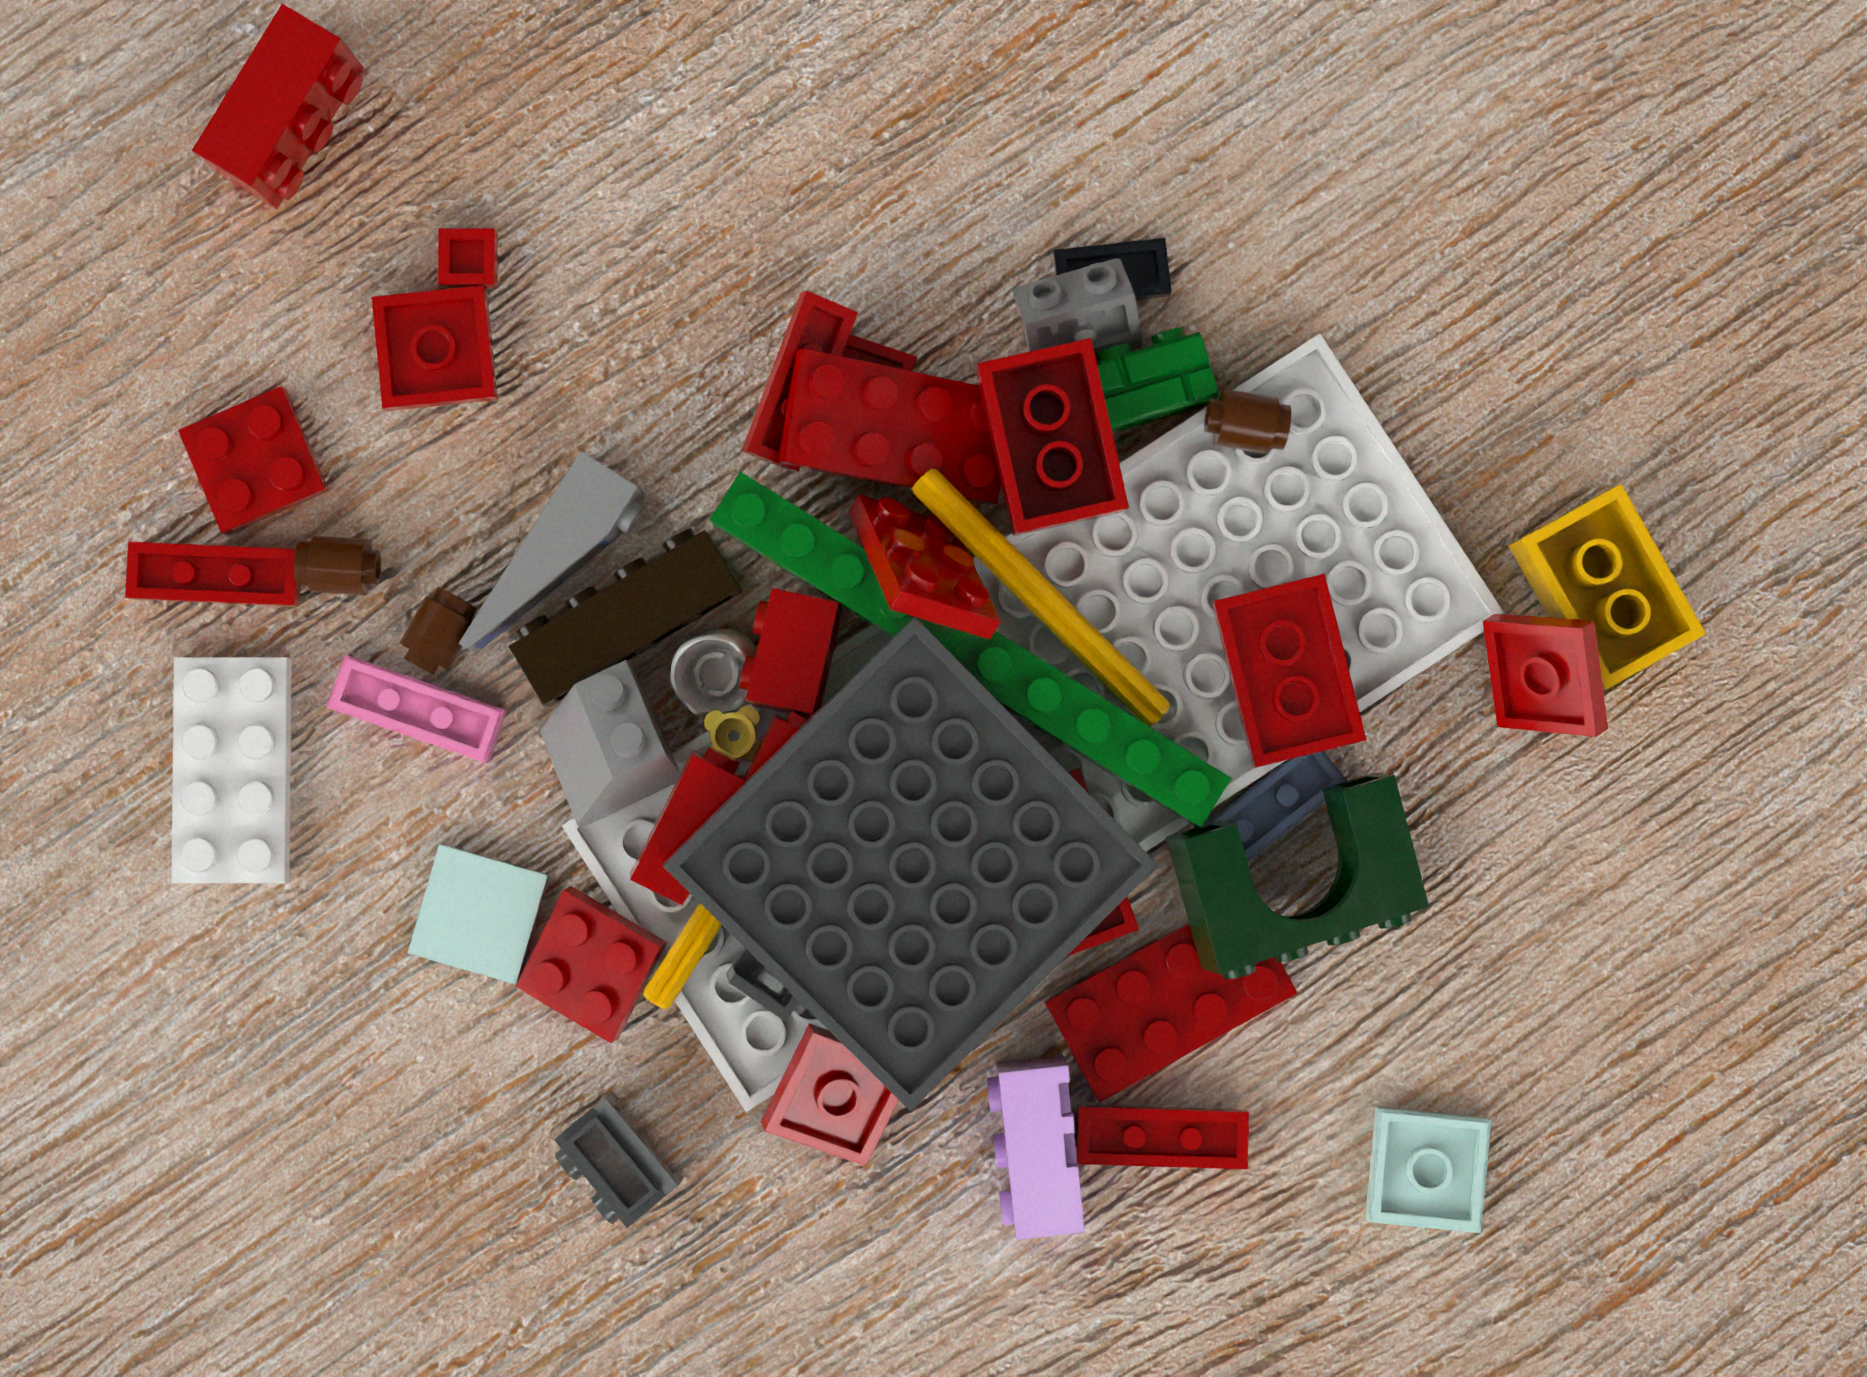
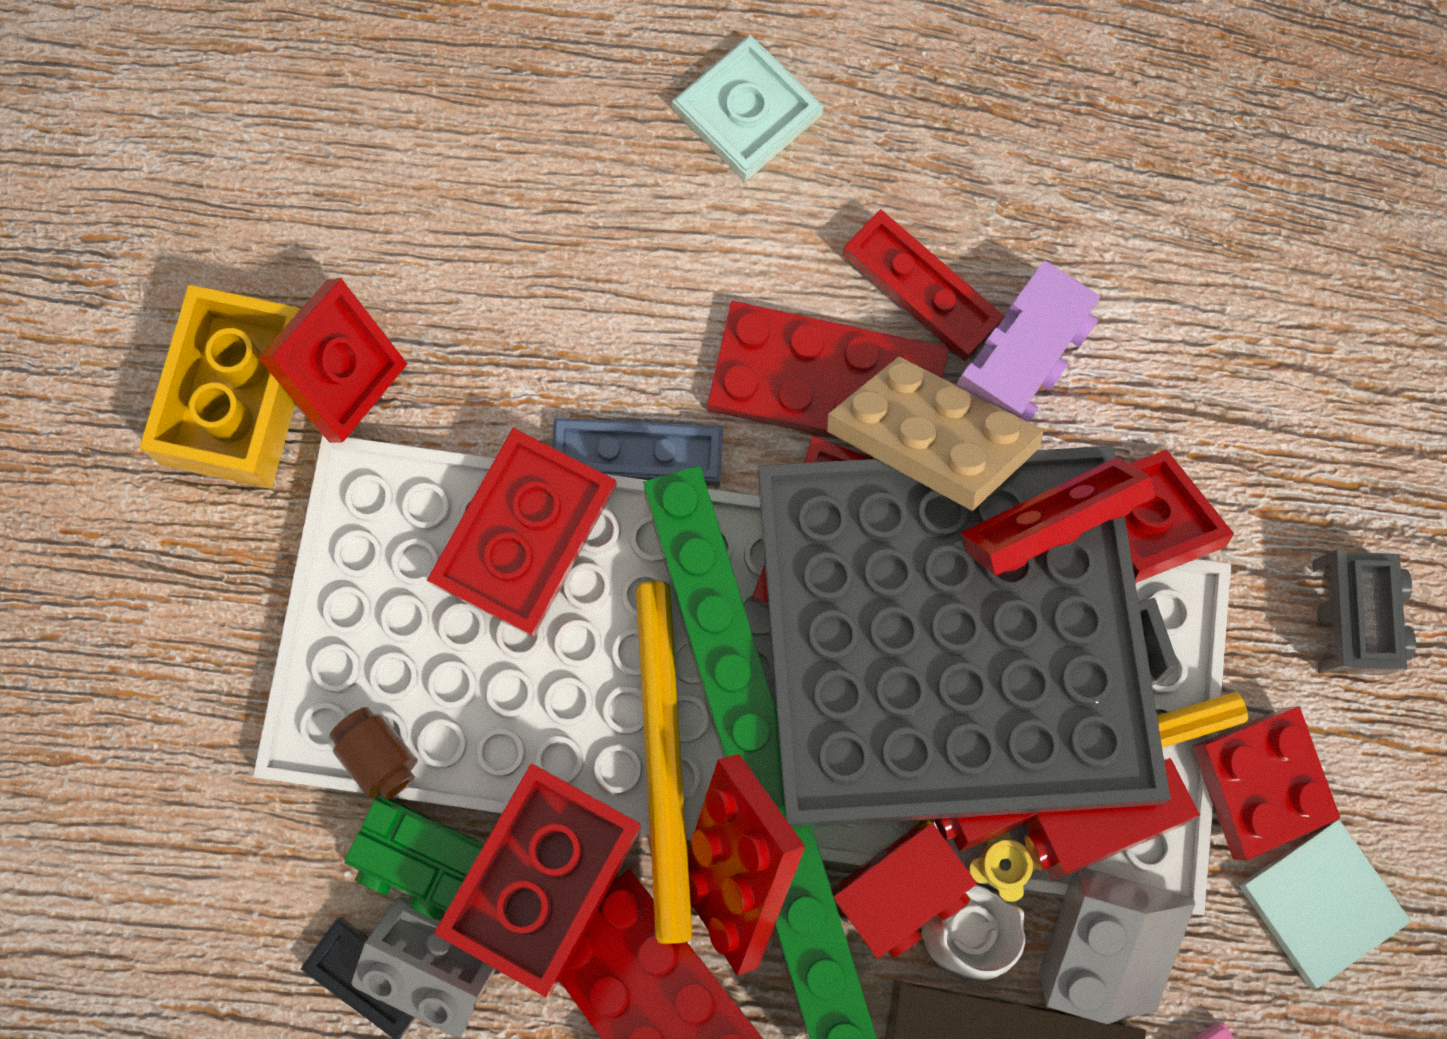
camera: 145 degrees left, 10 degrees down
(908, 1010) = (1058, 515): none -> red plate
(1051, 1006) = (935, 432): none -> tan plate
(1373, 883) = (608, 324): dark green arch -> none

